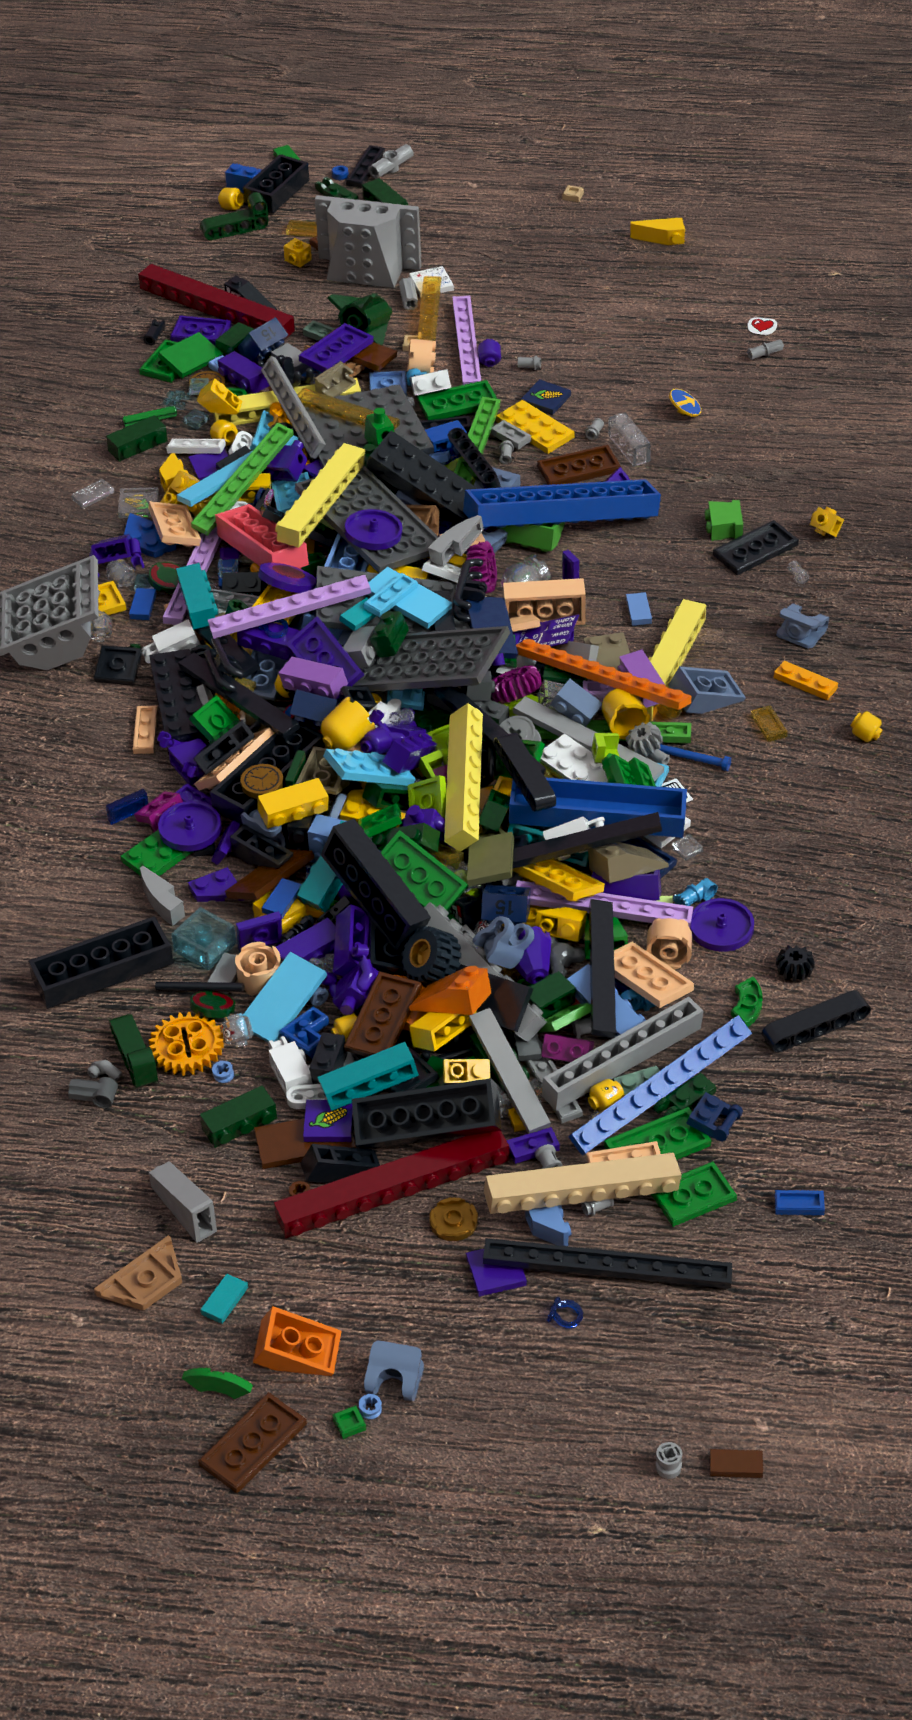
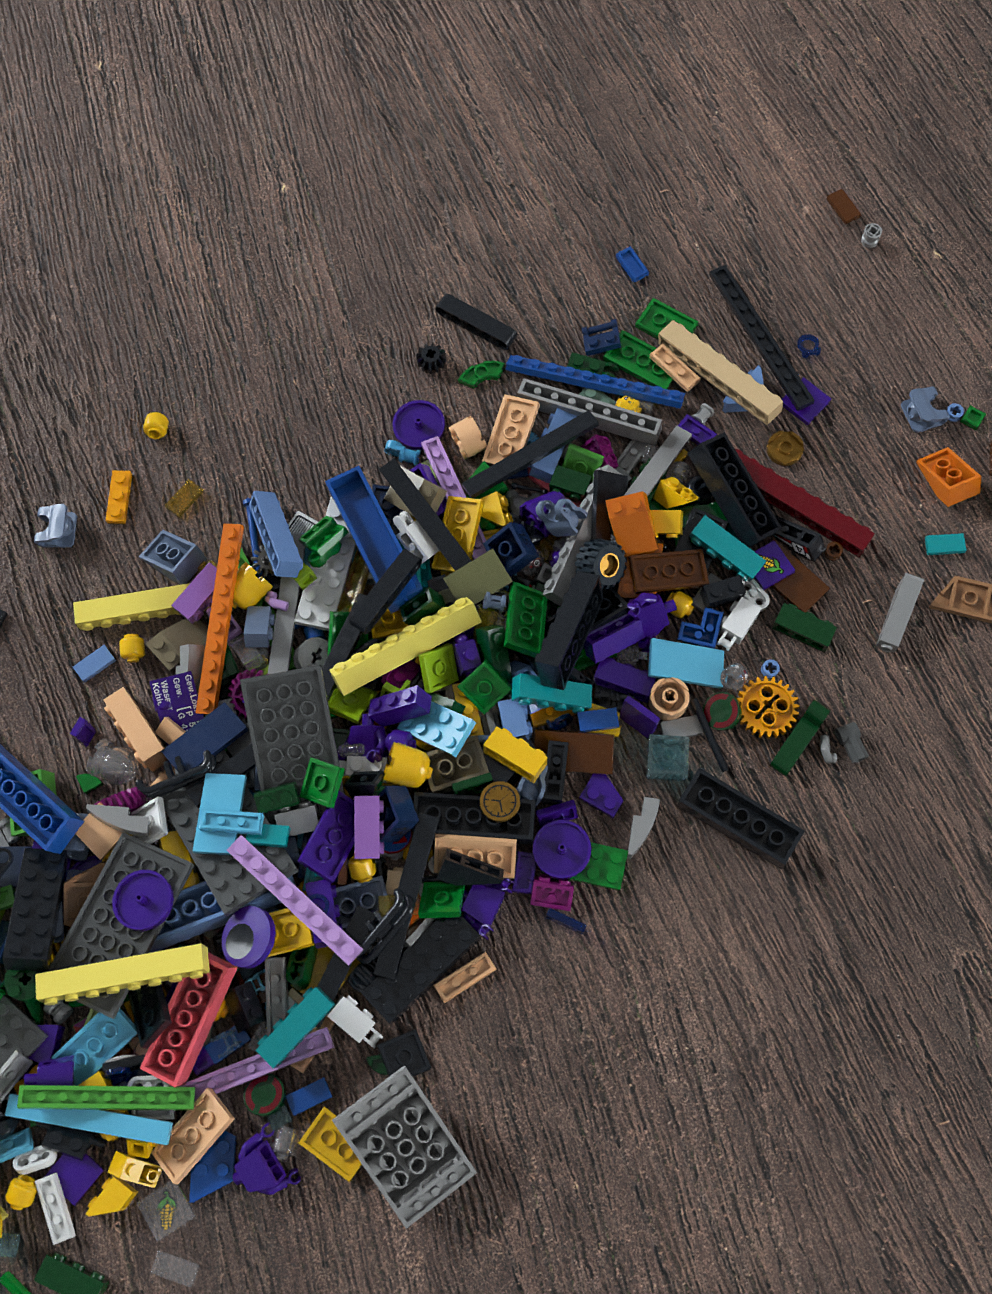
camera: 120 degrees left, 25 degrees up
(375, 659) = (322, 782): none -> green tile
(456, 857) = (494, 602): none -> sand blue bush
(595, 724) = (276, 603): none -> lavender arm
(633, 630) = (132, 648): none -> yellow head
(662, 744) = (275, 534): none -> medium blue brick

